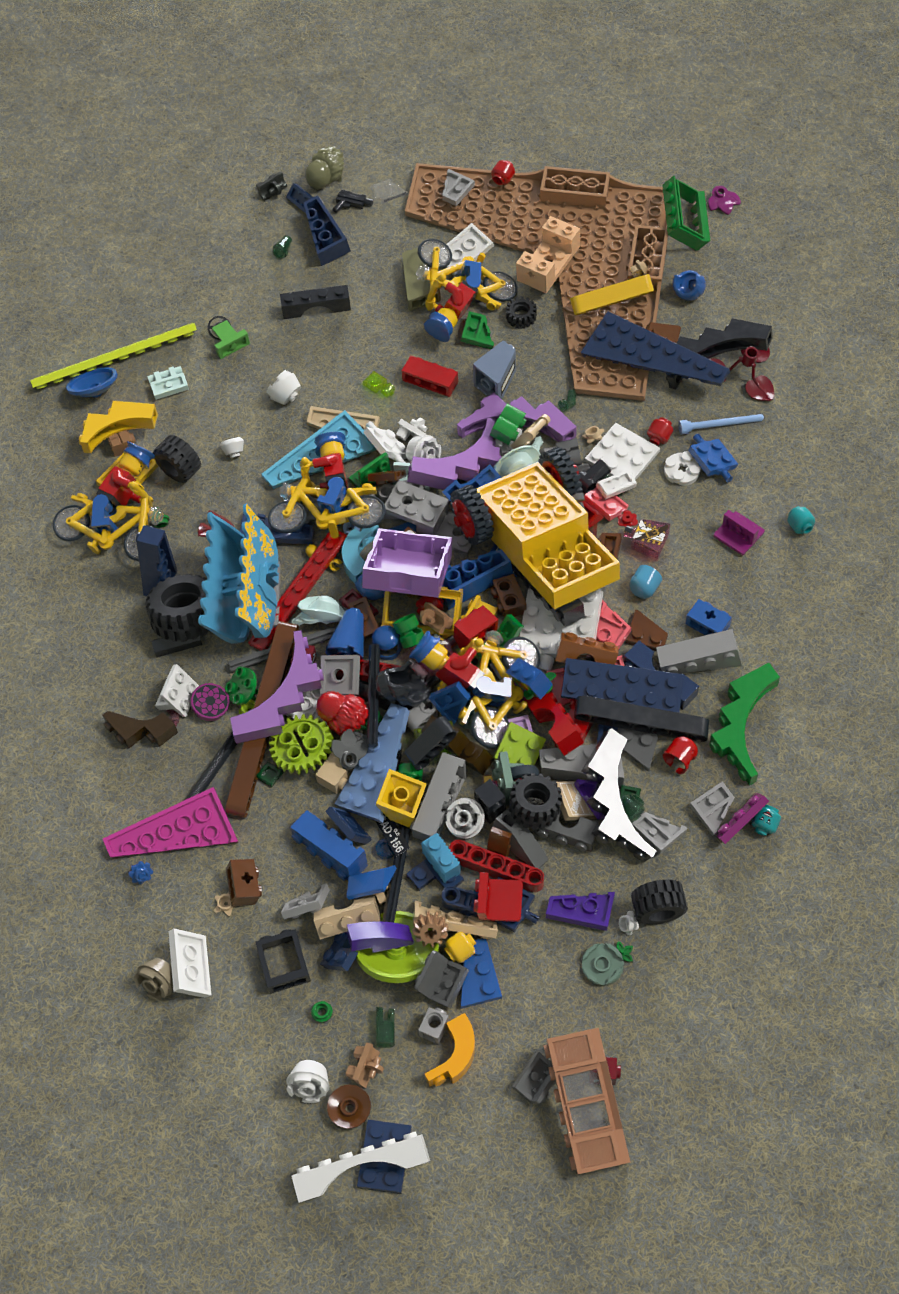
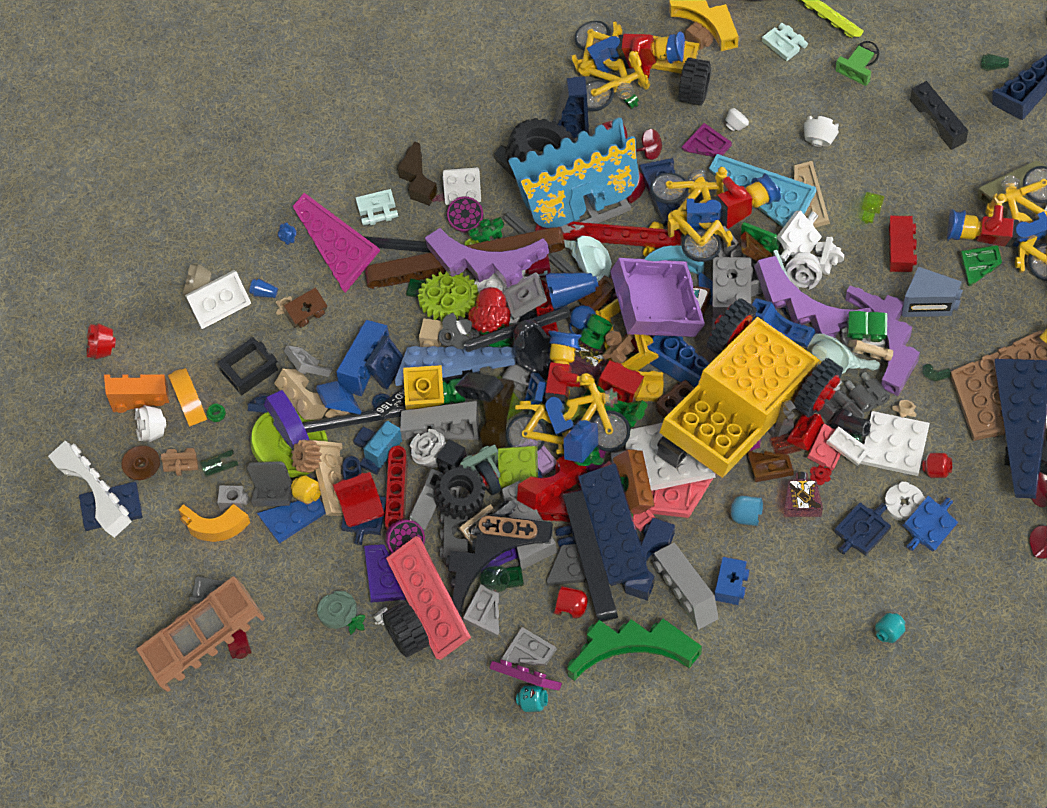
camera: 70 degrees right, 0 degrees up
(149, 778) = (374, 203): none -> light aqua plate
(178, 1104) = (100, 341): none -> red cone
(194, 919) = (263, 289): none -> blue cone
(242, 478) = (707, 142): none -> magenta wing
(261, 1083) = (136, 392): none -> orange wedge
(293, 1029) = (187, 397): none -> light orange arch
(499, 841) = (413, 482): reddish brown slope -> none
(521, 320) = (1024, 301): black tyre -> none
(554, 873) = (402, 532): none -> tile
(573, 781) = (503, 509): none -> black hinge
(594, 770) = (492, 531): none -> medium nougat beam
(626, 870) = (428, 597): none -> coral plate
(646, 632) = (694, 533): reddish brown wing -> none
(686, 426) = (957, 487): light blue piece -> none
(696, 506) = (862, 528): none -> dark blue plate
(738, 532) = (850, 576): magenta bracket -> none

